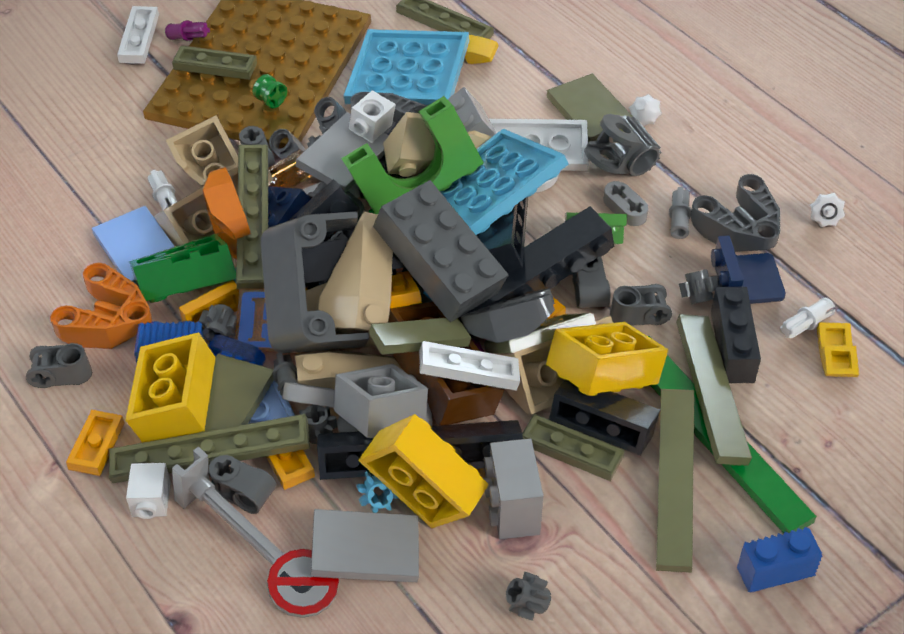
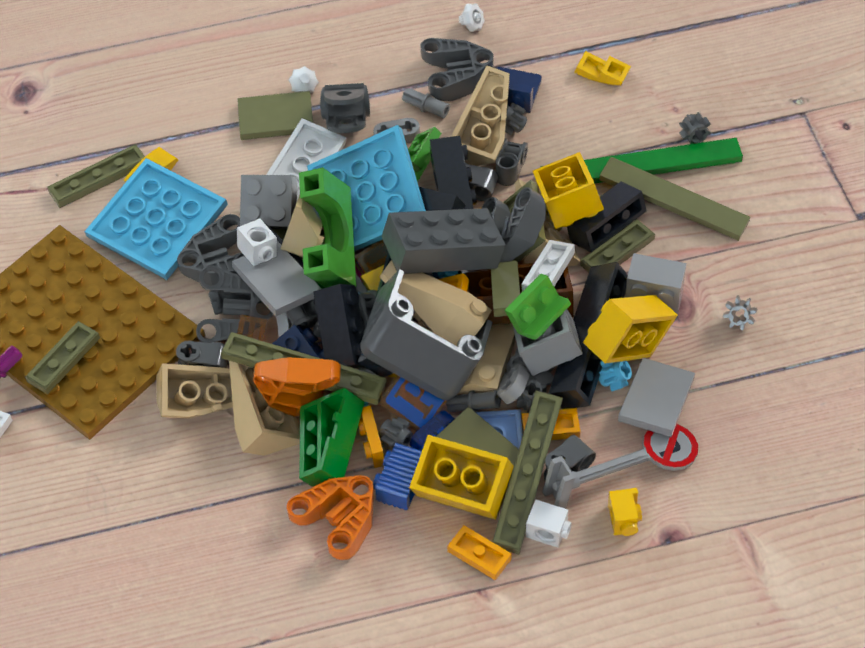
camera: 65 degrees left, 5 degrees up
(59, 365) = (382, 567): dark grey piece -> none
(131, 238) = (261, 478): light blue tile -> none
(162, 190) = (209, 442): white axle -> none
(186, 559) = (624, 511): none -> yellow brick
(269, 91) = (138, 321): green wheel -> none
(390, 360) = (536, 308): none -> bright green bracket
(659, 254) = (485, 118): none -> tan wedge
(713, 391) = (606, 147): tile -> none
(736, 334) = (567, 116): black brick -> none
(779, 559) = (765, 169): blue brick -> none
(797, 464) = (695, 128): none -> dark grey gear
(807, 318) = (567, 71): white axle -> none

